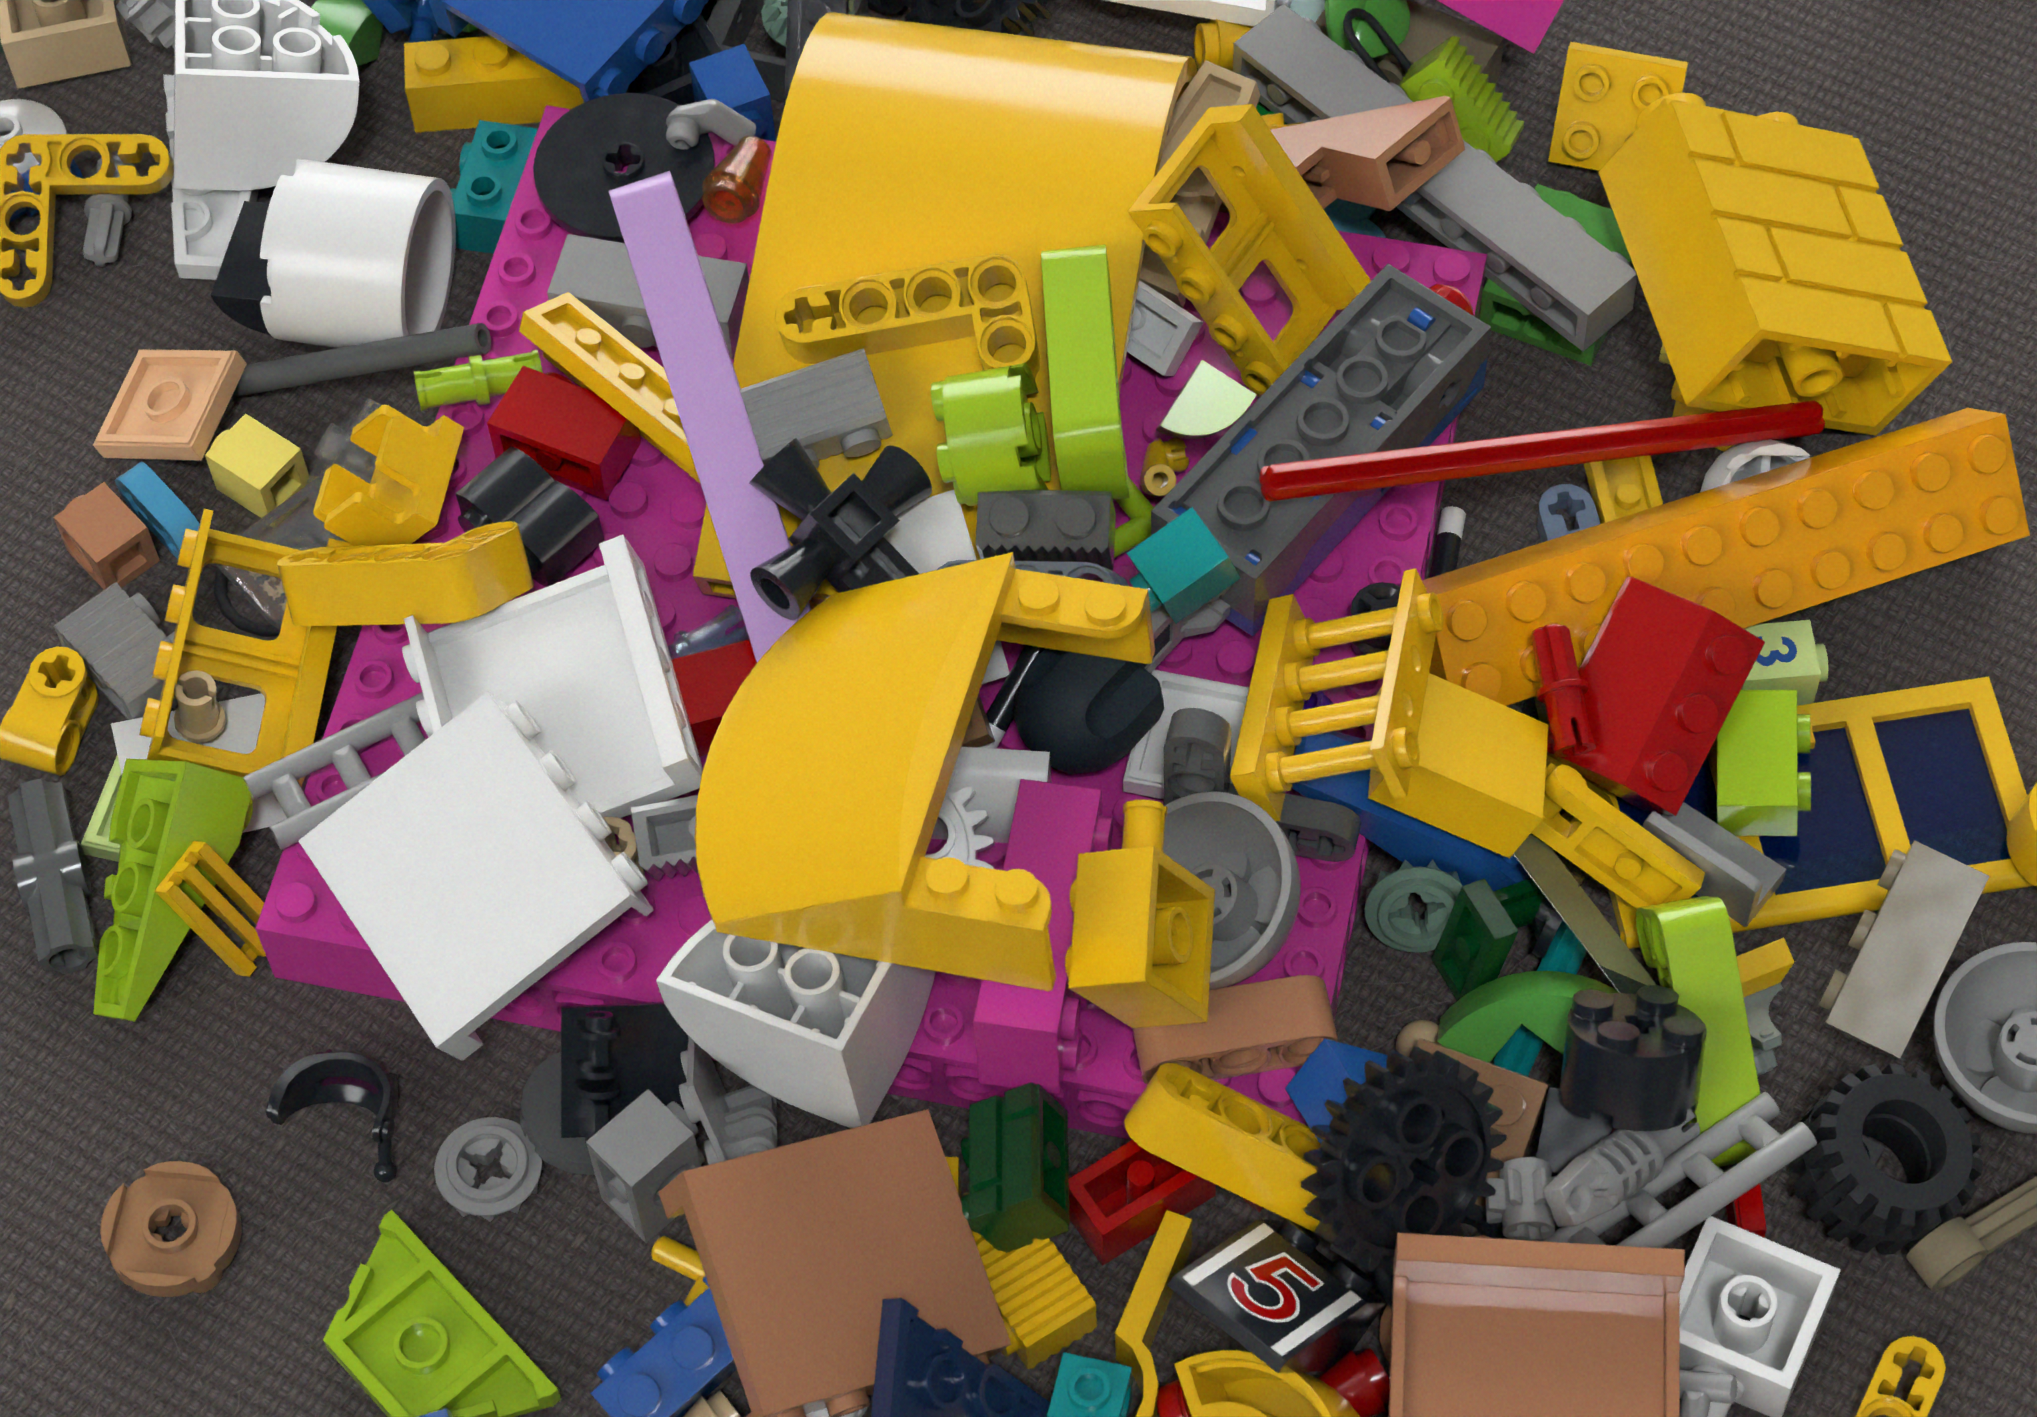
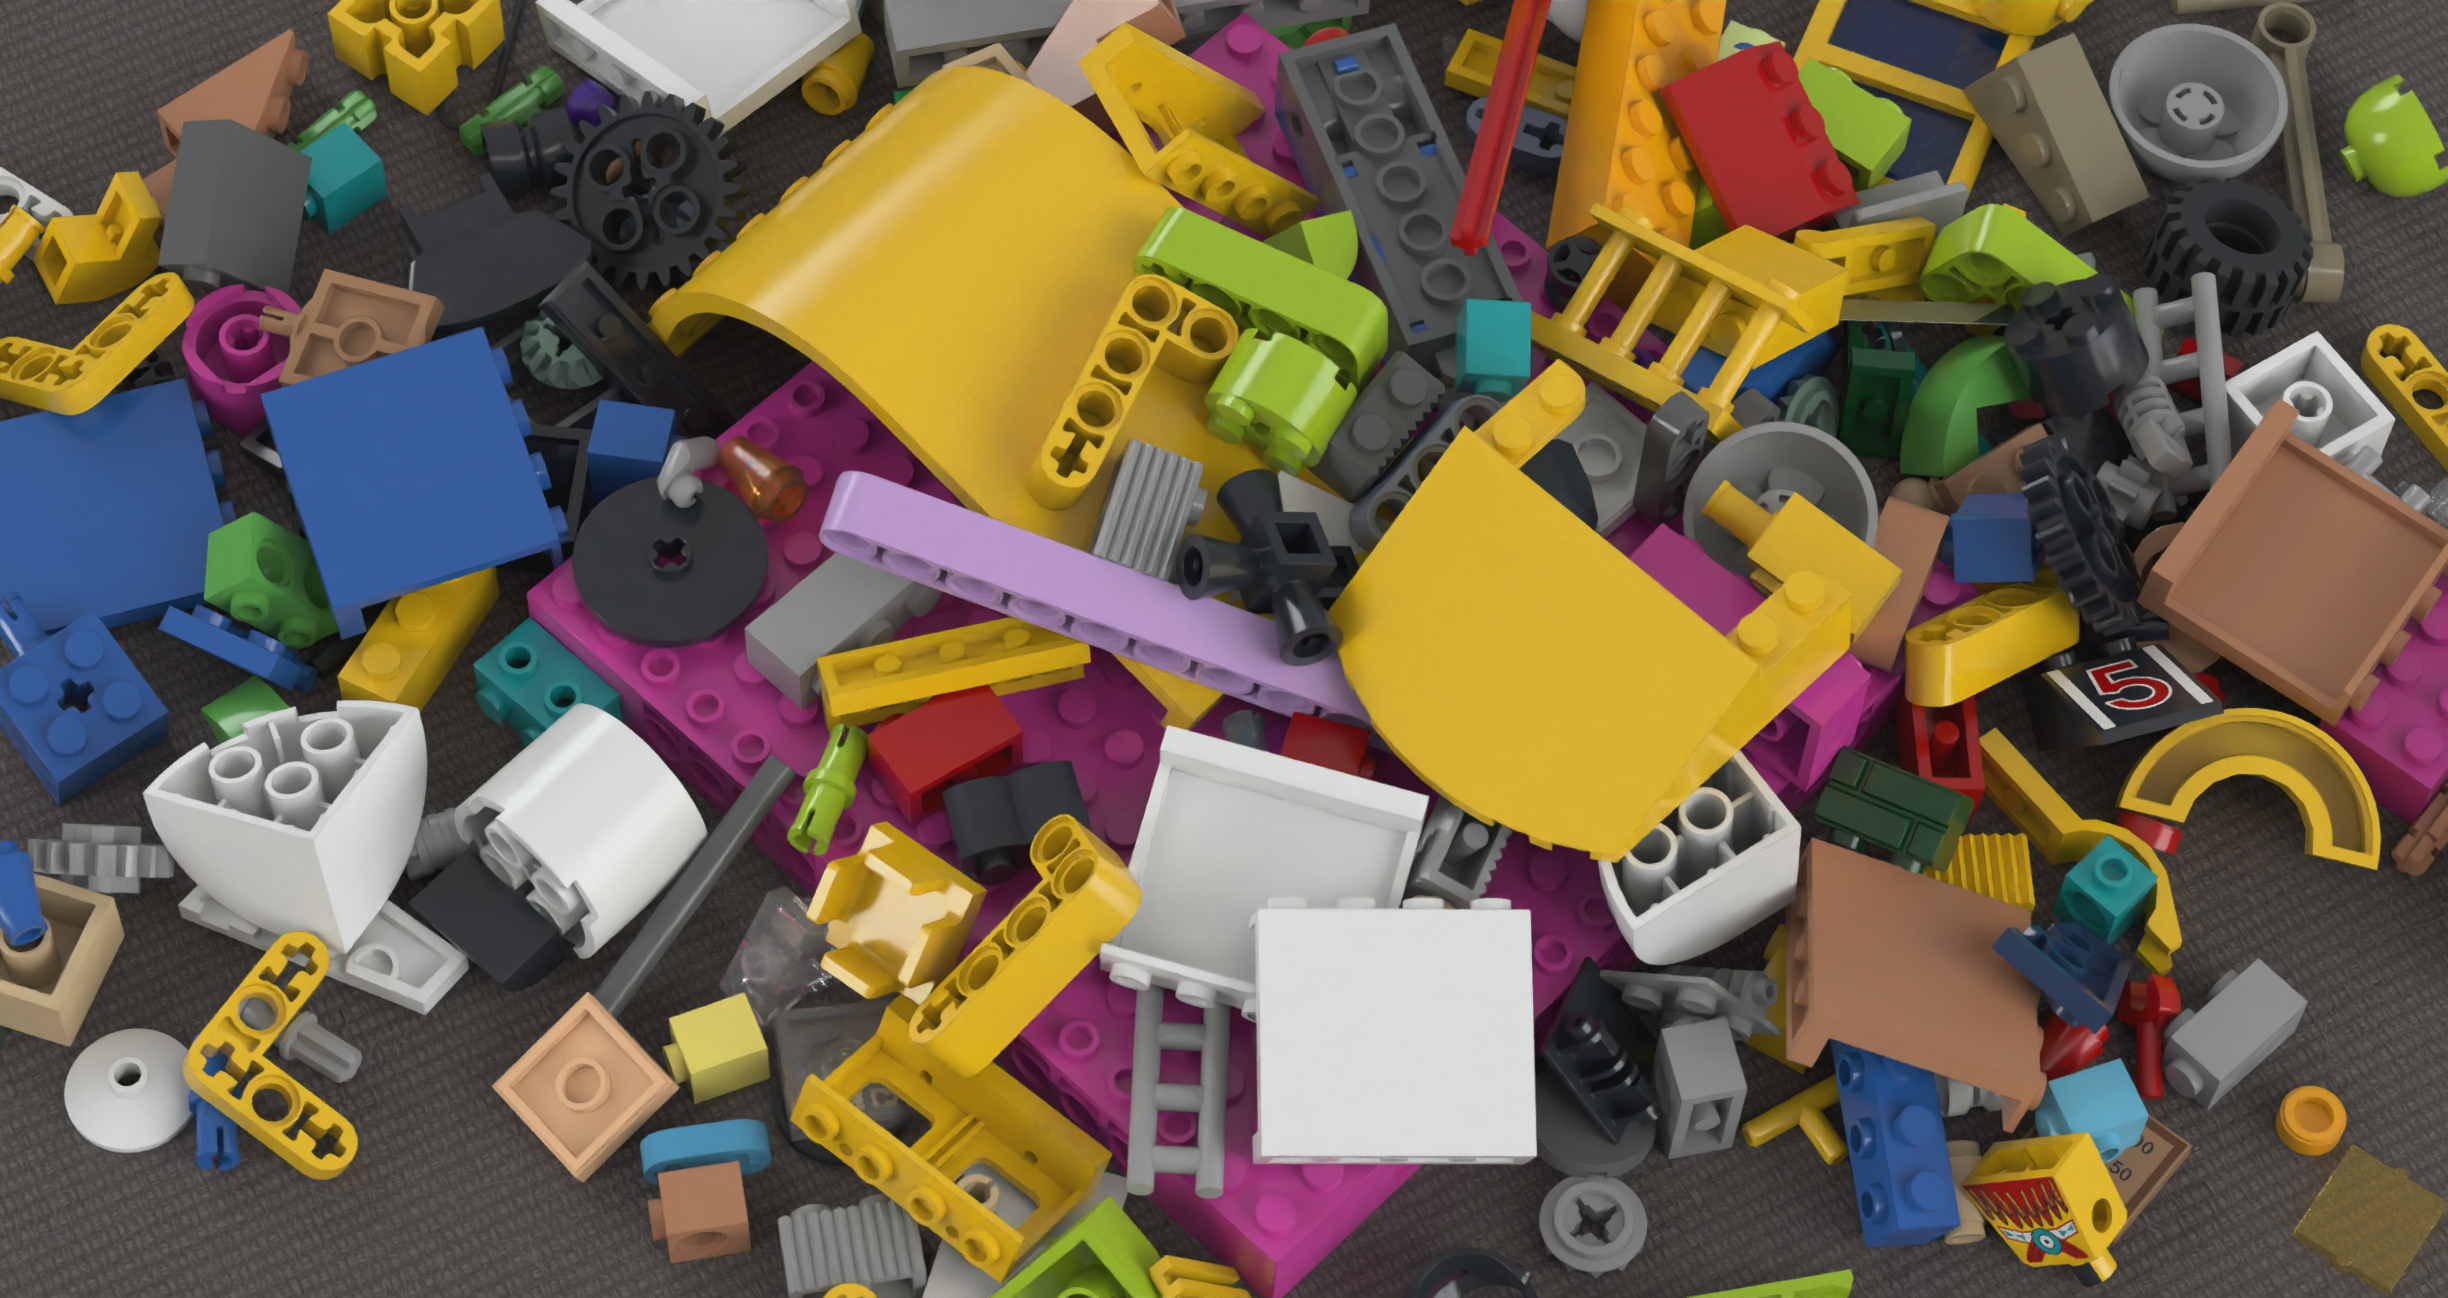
camera: 65 degrees left, 0 degrees up
(1562, 690) = (1727, 194): red axle -> none

